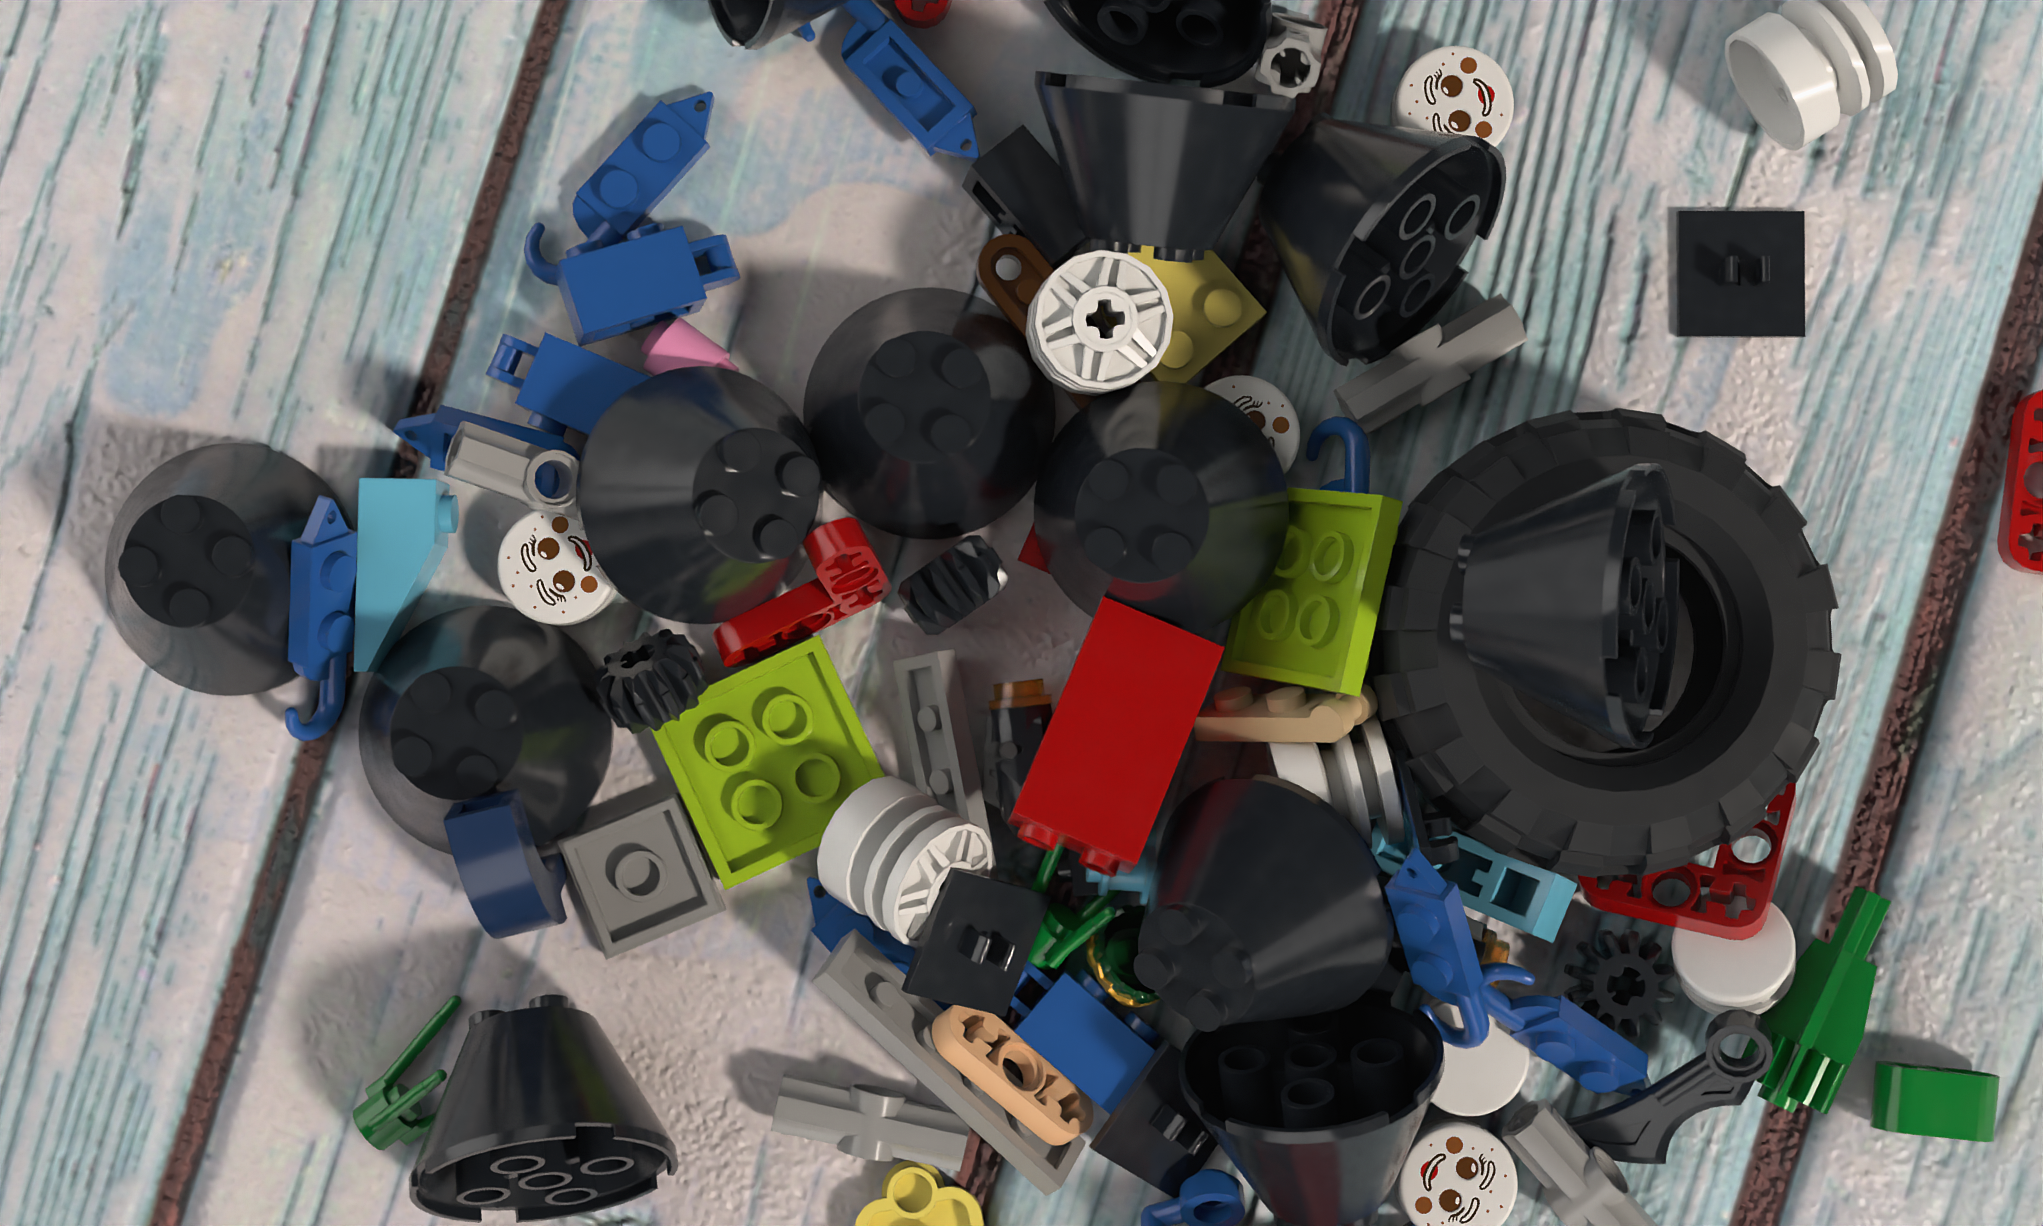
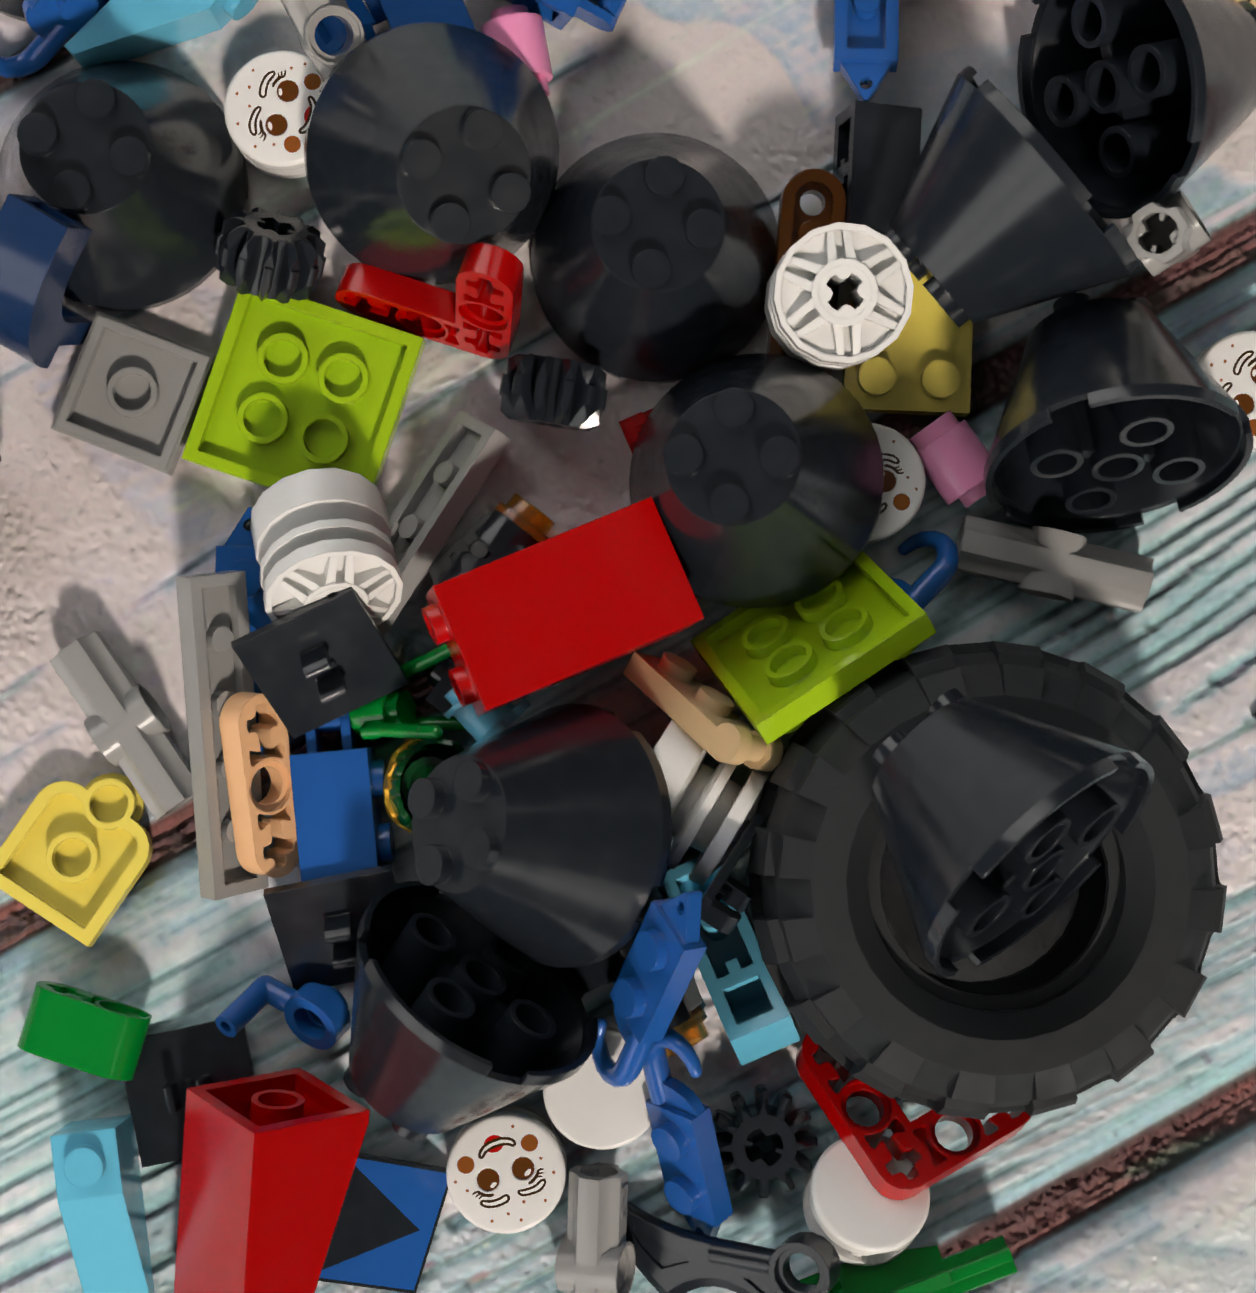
camera: 45 degrees right, 0 degrees up
(1287, 357) = (952, 459): none -> bright pink brick

